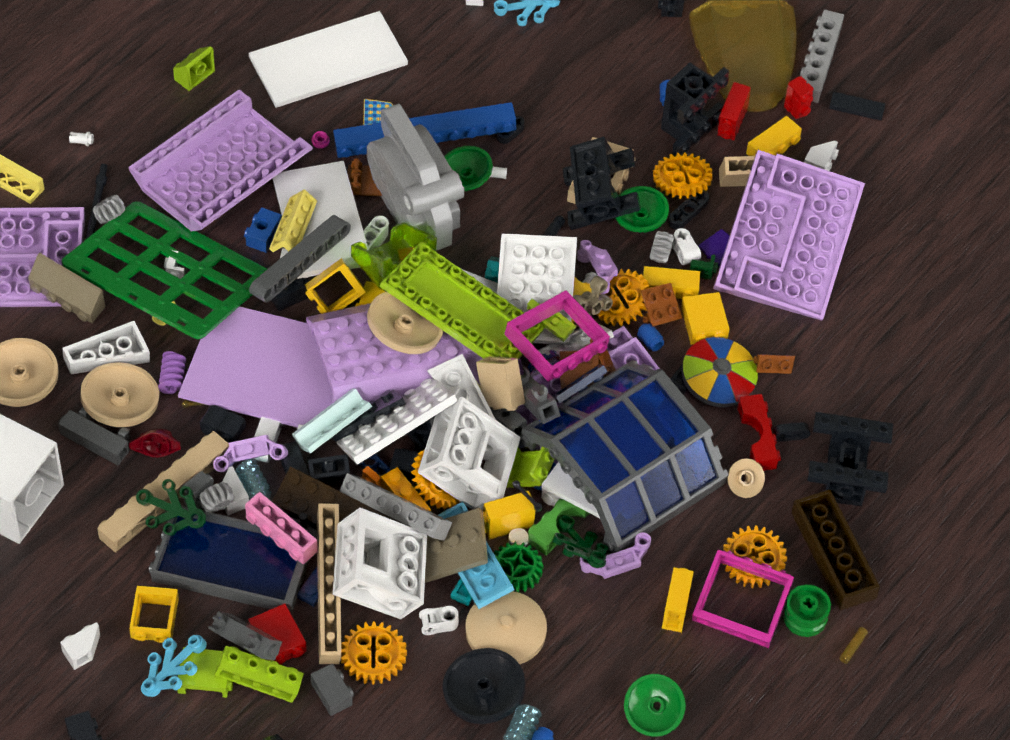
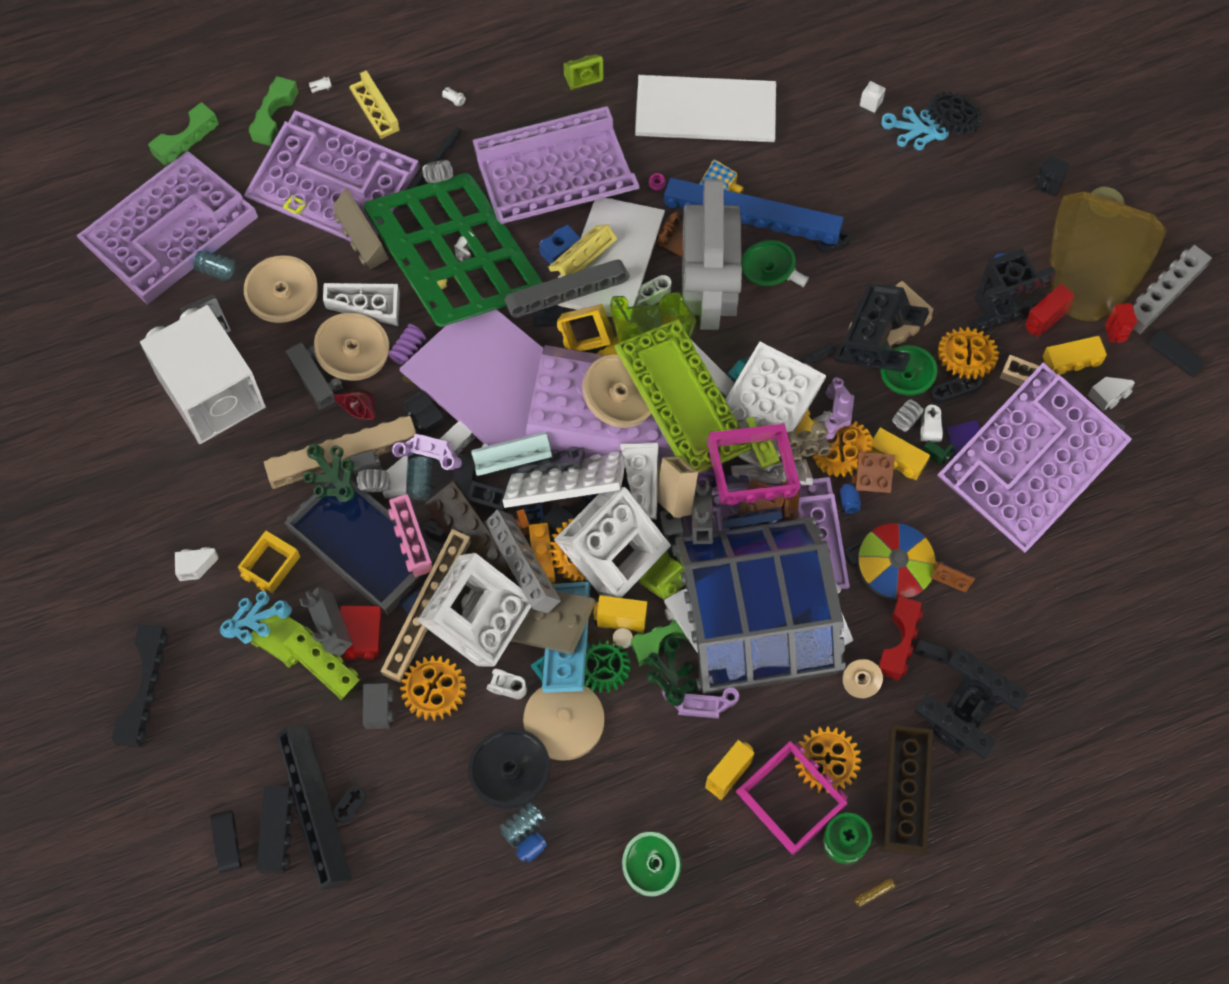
camera: 30 degrees right, 10 degrees up
(537, 506) = (645, 622): black hinge -> none
(704, 317) = (911, 502): yellow brick -> none

